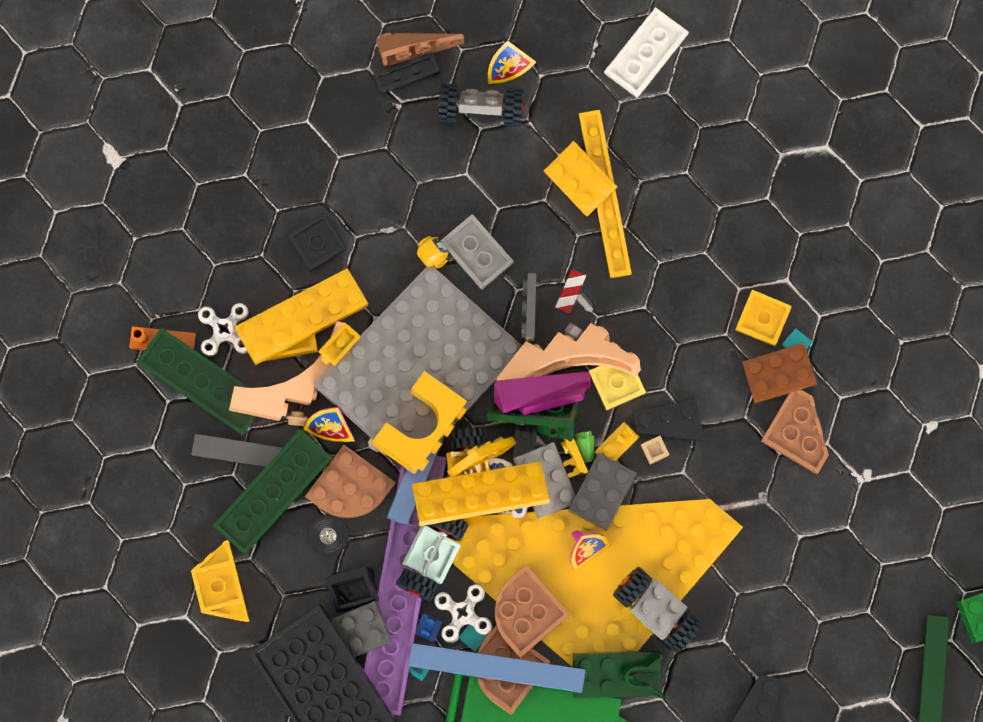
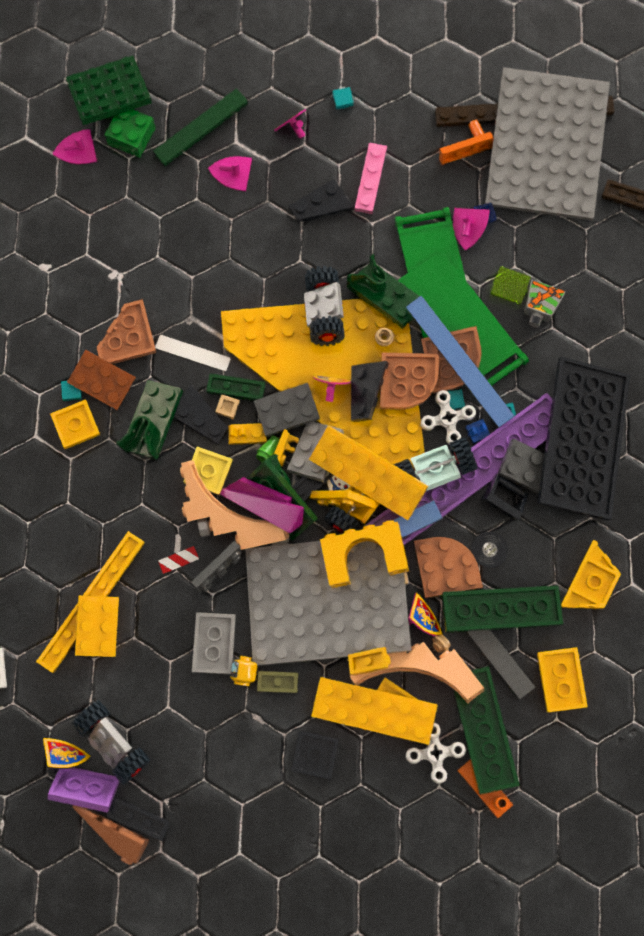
camera: 140 degrees left, 5 degrees down
(174, 480) = (562, 680): none -> yellow plate
(398, 269) = (277, 682): none -> olive plate
(466, 54) = (84, 788): none -> medium lavender plate
(555, 571) = (364, 389): none -> black wing
(582, 625) = (387, 332): none -> tan plate
(664, 473) = (235, 387): none -> dark green plate
(705, 380) = (151, 420): none -> dark green plate
(731, 471) = (193, 353): none -> white sticker
(862, 666) = (232, 172): none -> dark pink shield

